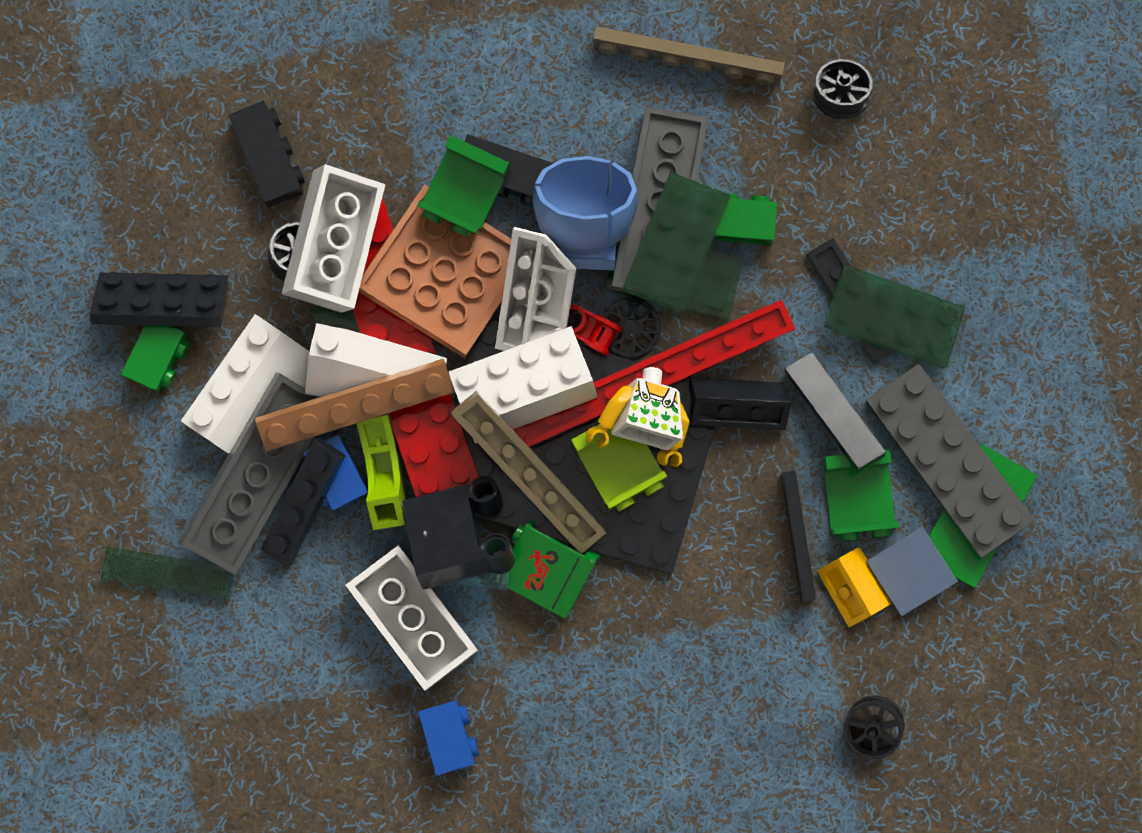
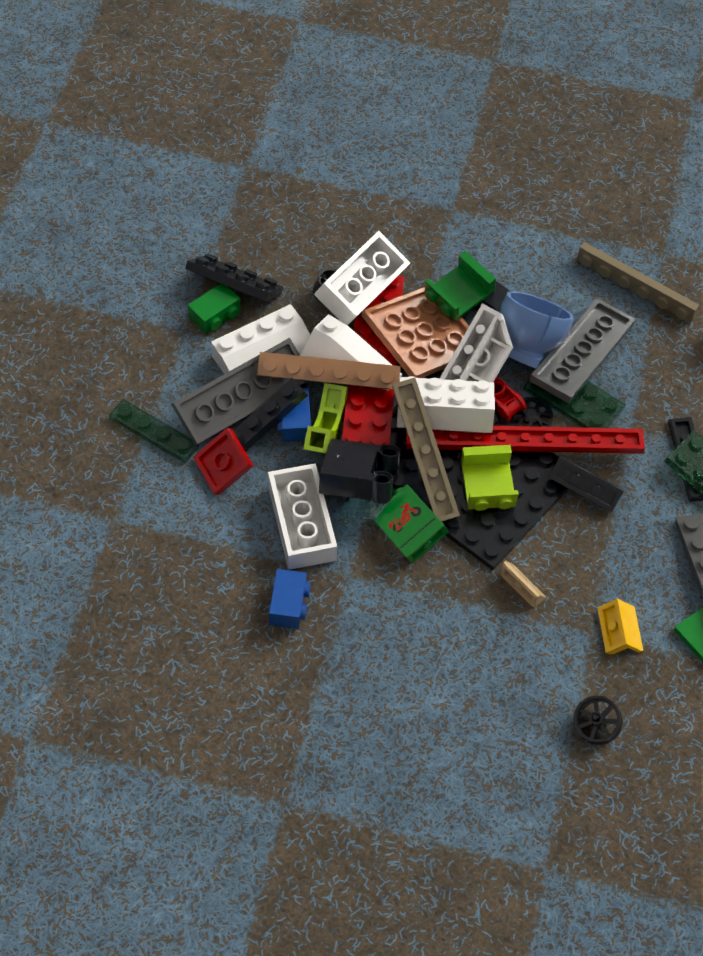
camera: 20 degrees right, 25 degrees down
(267, 153) = (343, 232): black brick -> none
(279, 585) = (223, 461): none -> red plate
(646, 414) = (522, 450): torso -> none
(676, 242) = (585, 368): clear green plate -> none
(716, 579) = (522, 584): none -> tan slope
(748, 221) = (633, 382): green brick -> none
(798, 536) = (593, 578): black tile -> none
(835, 412) = (651, 512): tile -> none
(859, 499) = (648, 570): green panel -> none
(912, 571) = (666, 633): sand blue tile -> none

